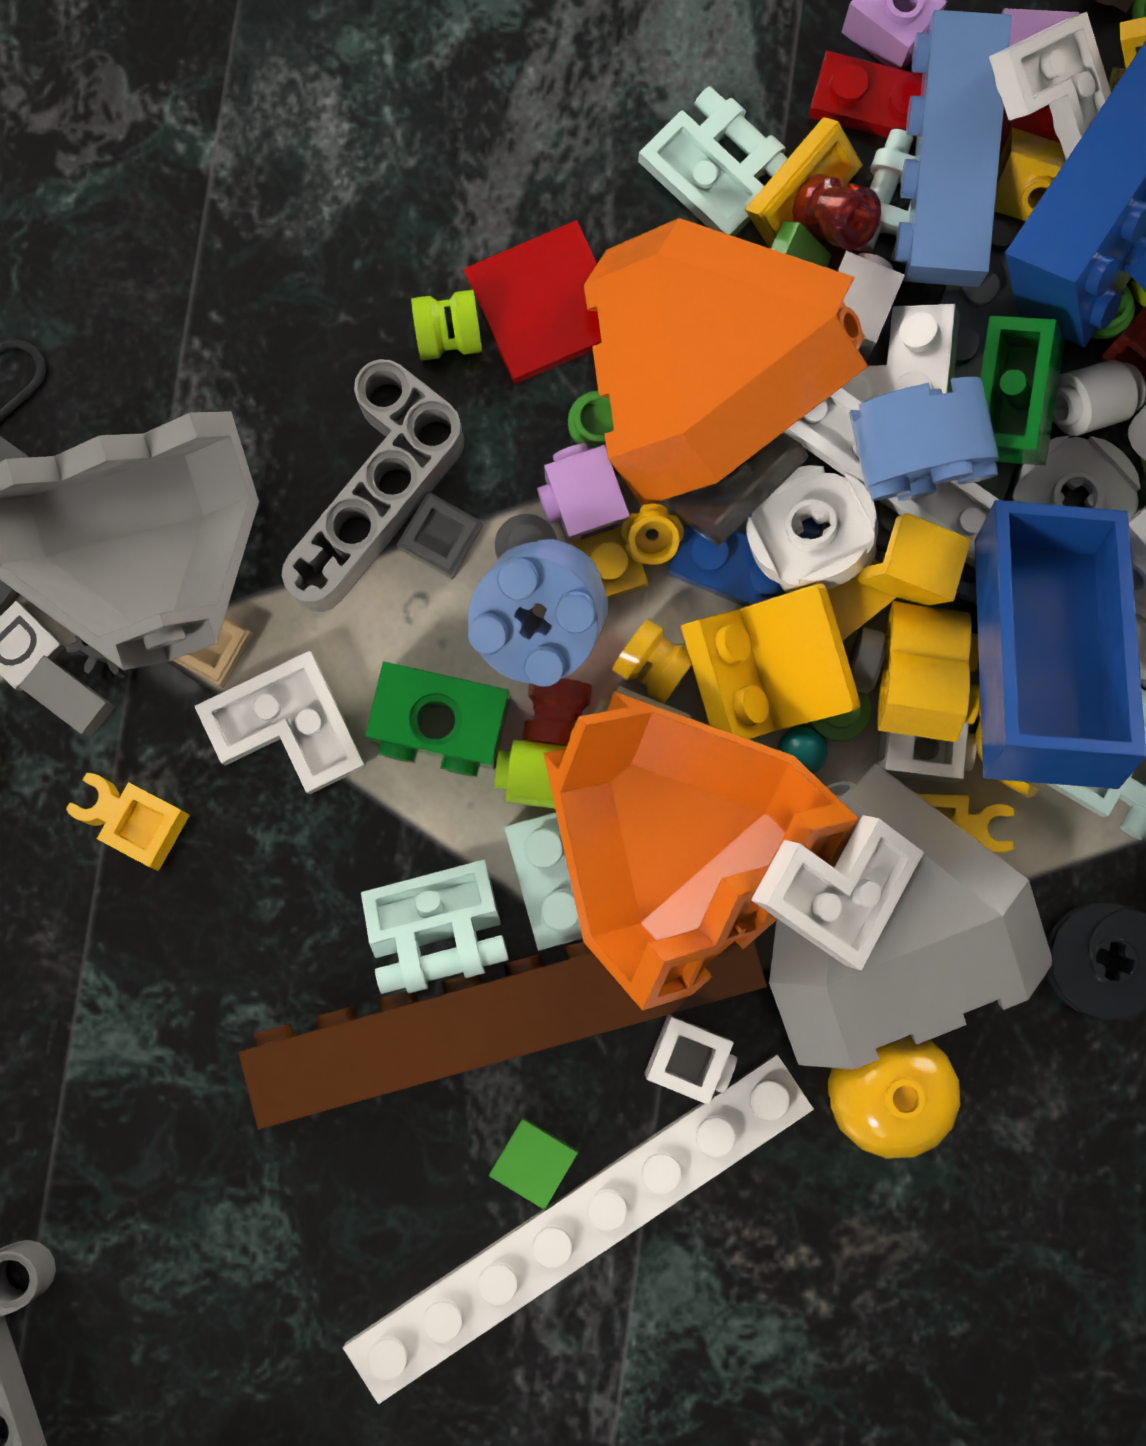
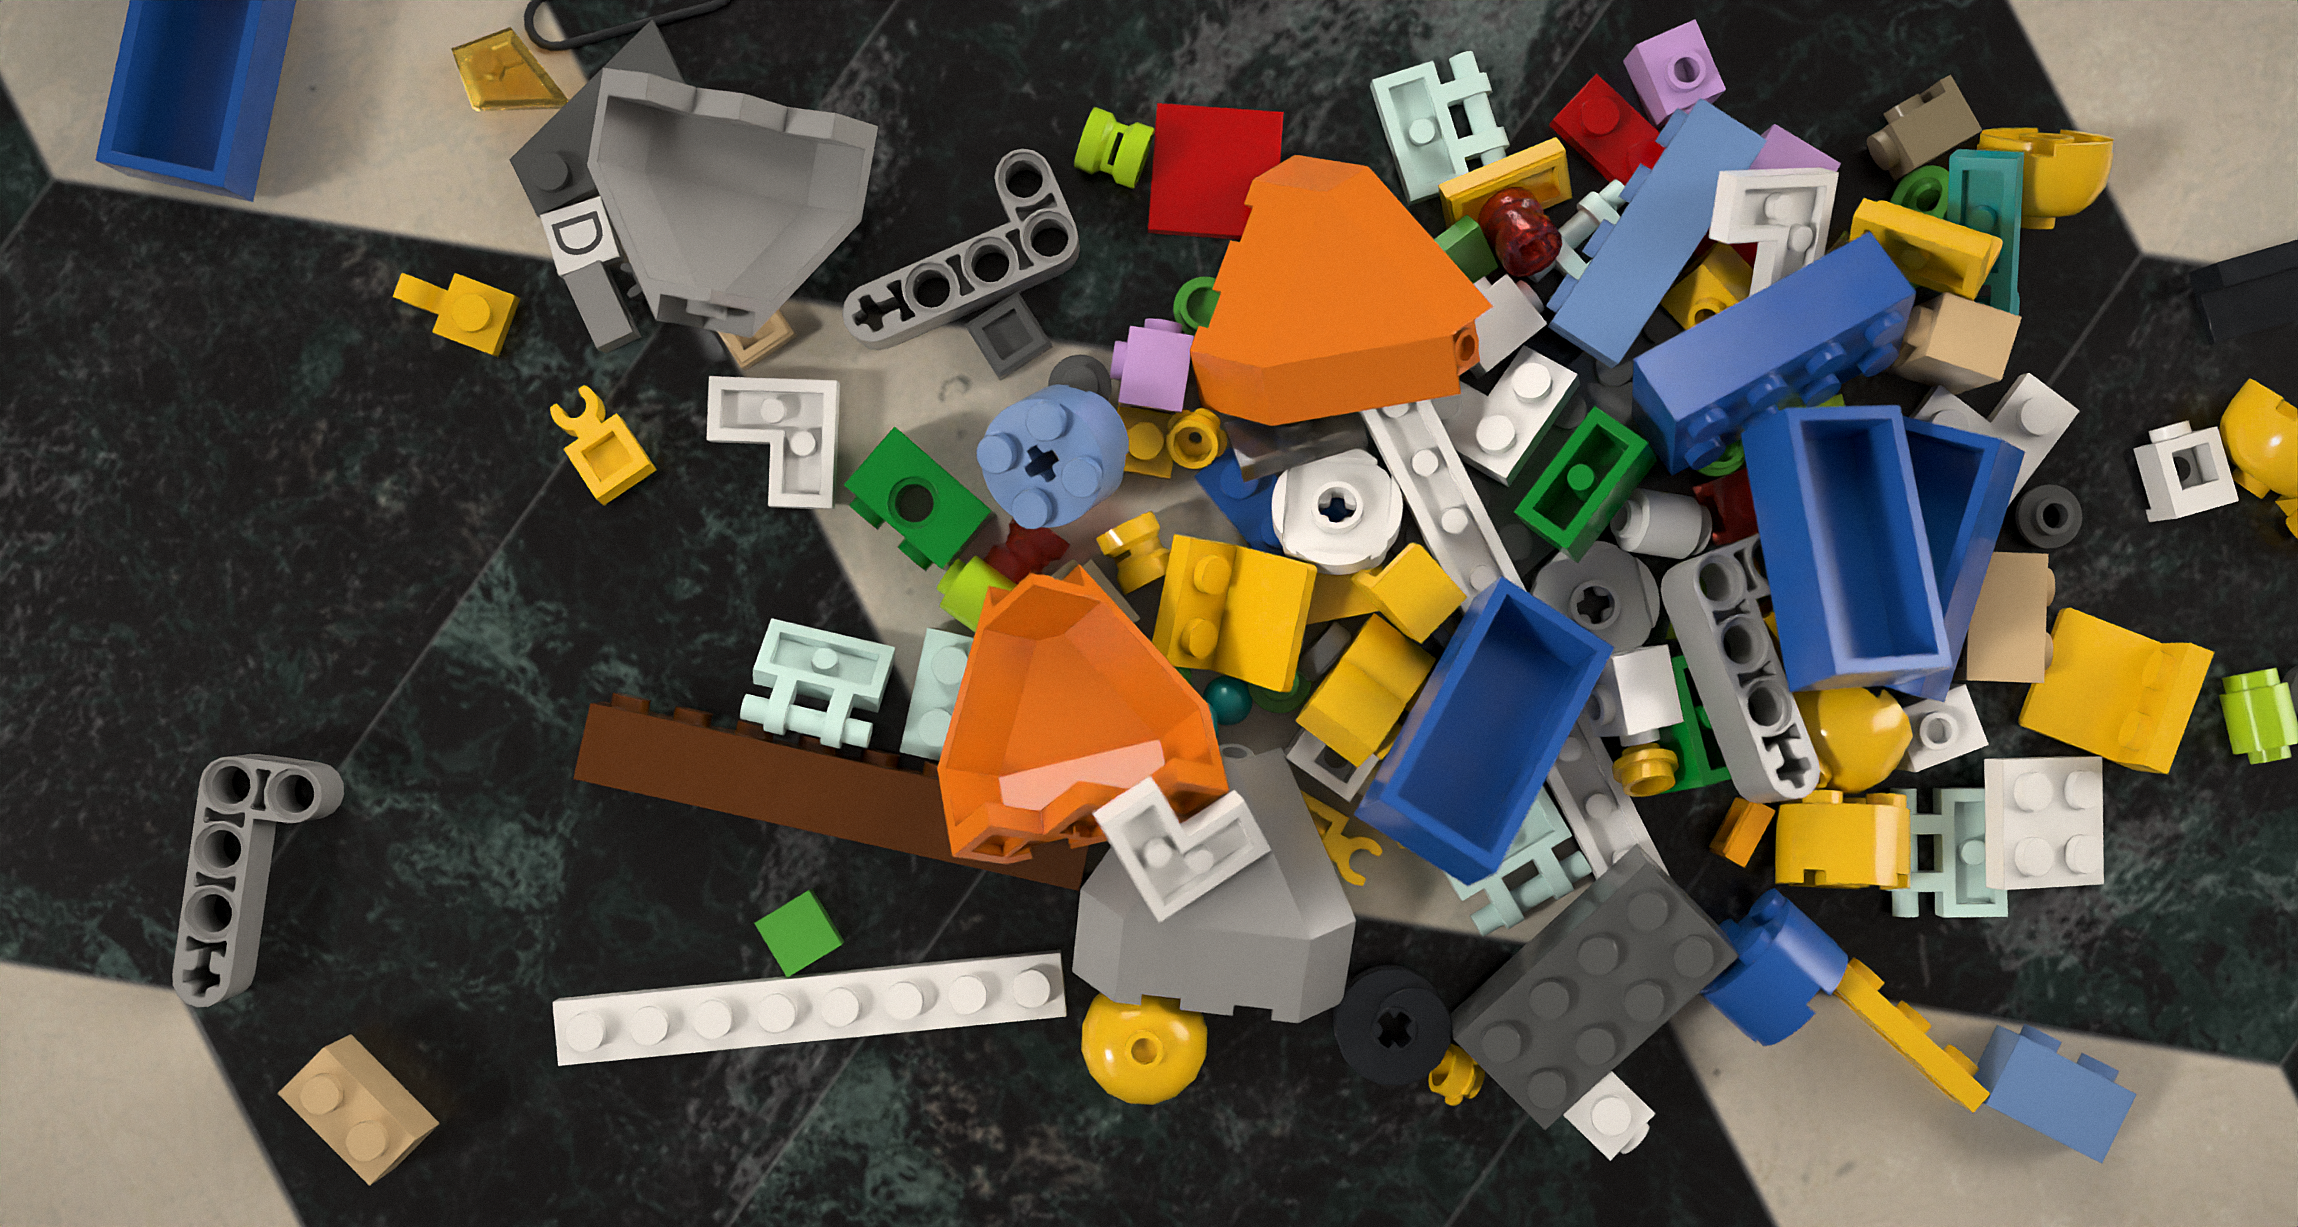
camera: 25 degrees right, 5 degrees up
(691, 1060) = (980, 918): white brick -> none
(924, 439) = (1469, 489): medium blue brick -> none

